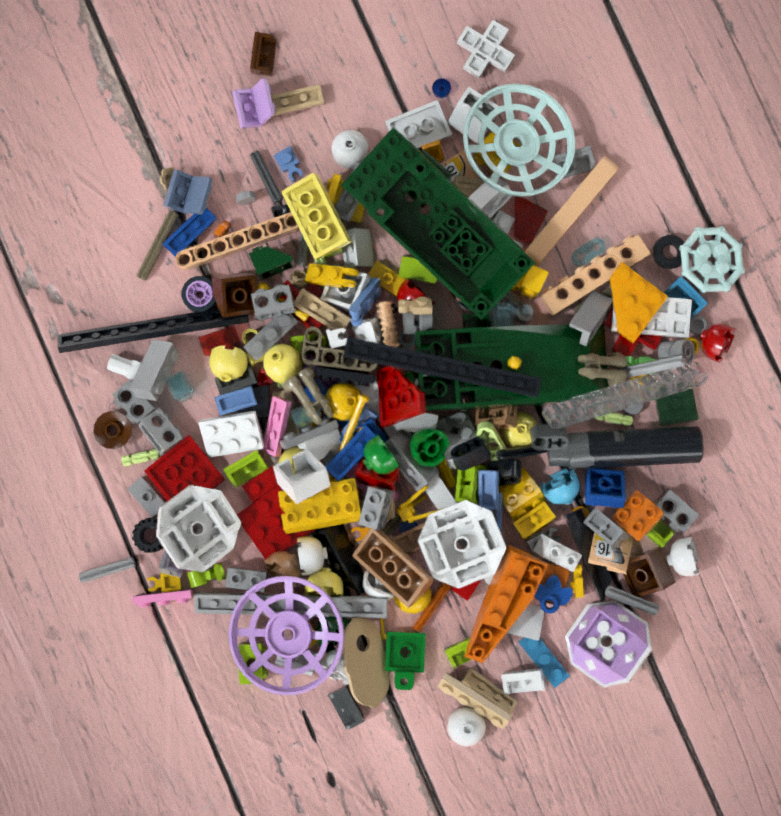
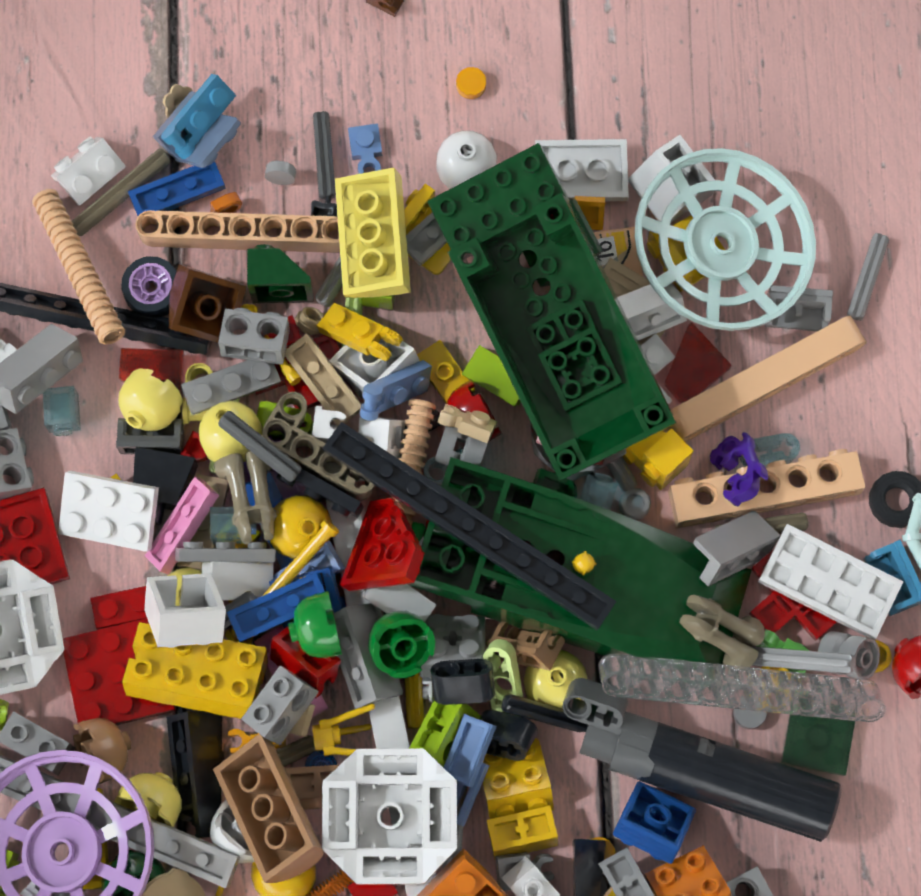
camera: 20 degrees right, 10 degrees down
(133, 239) = (87, 169): none -> white bracket
(153, 300) = (78, 266): none -> light nougat piece
(184, 183) = (198, 115): none -> dark azure plate
(235, 400) = (135, 462): medium blue tile -> none
(246, 468) = (107, 572): lime hinge -> none
(254, 105) = (348, 44): lavender bracket -> none
(297, 99) = (412, 61): tan plate -> none
(304, 366) = (259, 446): none -> dark grey axle
(311, 555) = (149, 743): white cylinder -> none
(333, 99) = (471, 83): none -> light orange tile
(359, 251) = (419, 312): white panel -> none
(441, 88) = (640, 126): clear blue tile -> none
(485, 49) = (729, 94): white plate -> none
(562, 487) = (586, 796): medium azure cylinder -> none
(565, 264) = (727, 455): none -> dark purple helmet
(605, 127) = (868, 276): none -> light grey axle
(617, 418) = (713, 721): yellowish green axle -> none
(633, 301) = (810, 548): light orange plate -> none
(698, 325) = (898, 627): light grey tile -> none

